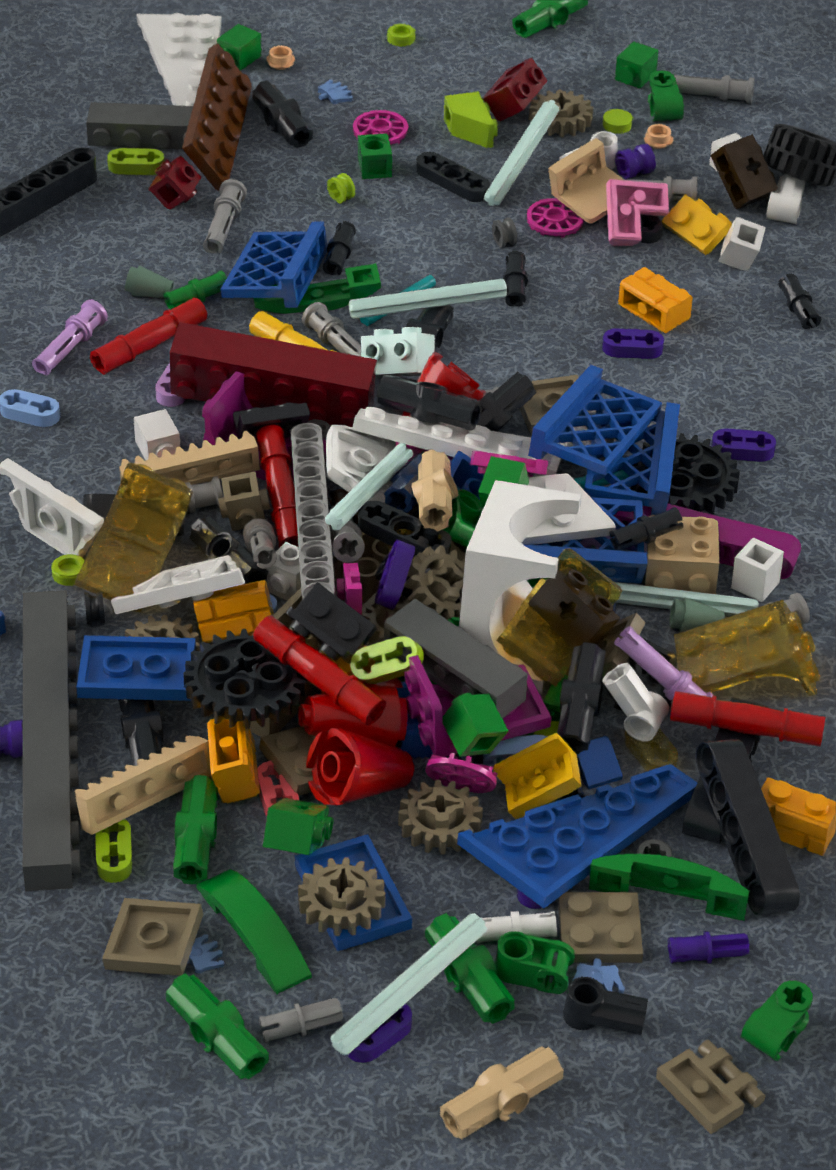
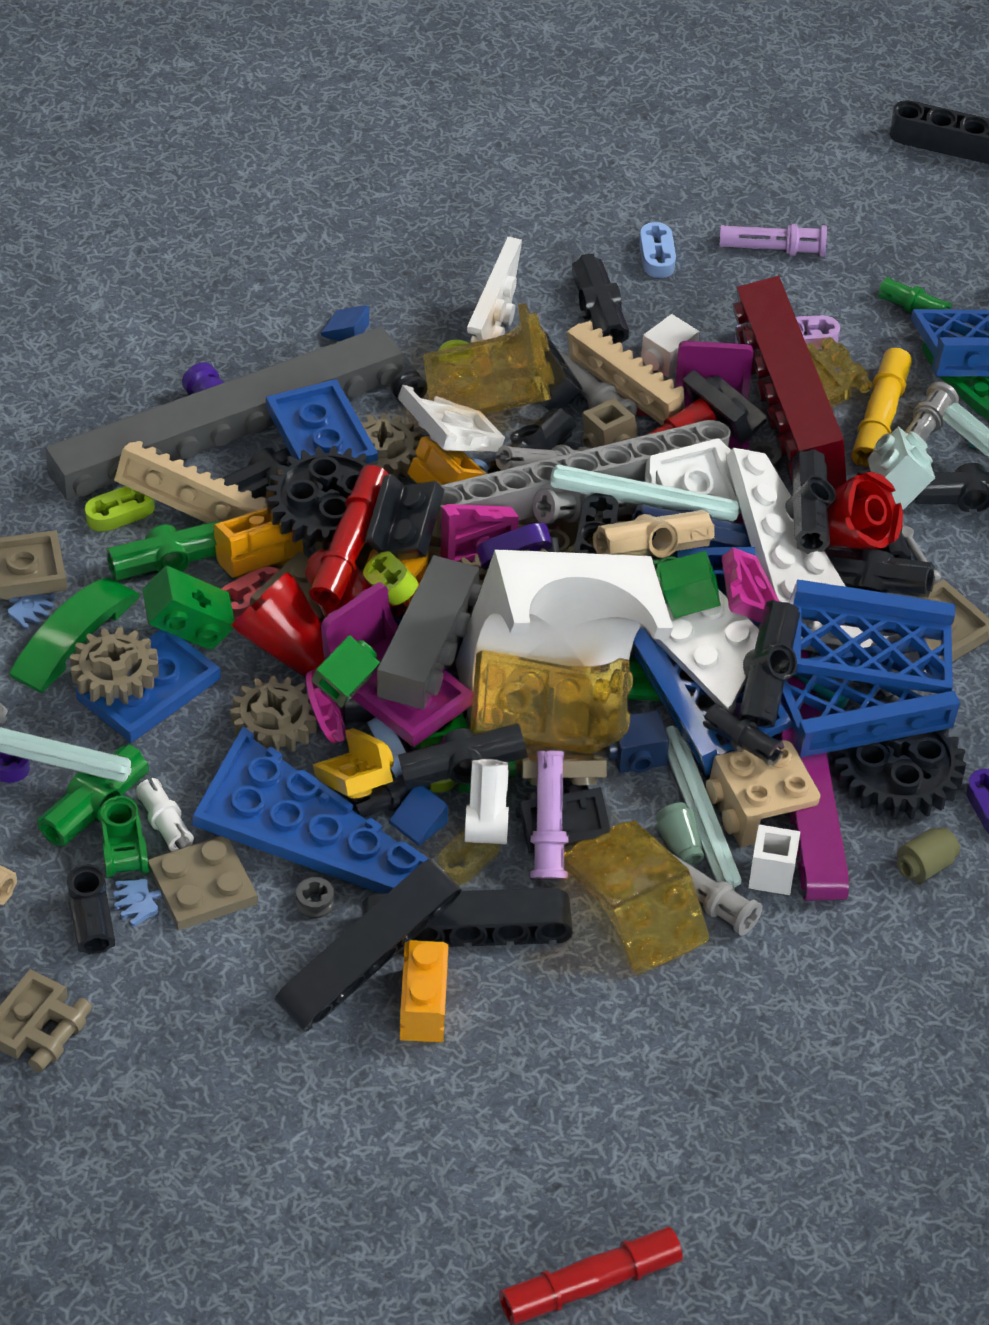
camera: 65 degrees right, 5 degrees up
(70, 459) = (600, 298): none -> black piece
(146, 283) = (897, 260): sand green cone -> none
(146, 336) = (825, 291): red piece -> none
(574, 608) = (570, 706): dark brown brick -> none
(600, 479) = (770, 663): none -> black piece
(670, 876) = (274, 878): green slope -> none
(707, 947) = (214, 971): dark purple axle -> none
(747, 718) = (518, 903): red piece -> none
(779, 1019) = (136, 1049): green piece -> none
(781, 493) = (927, 854): none -> olive brick

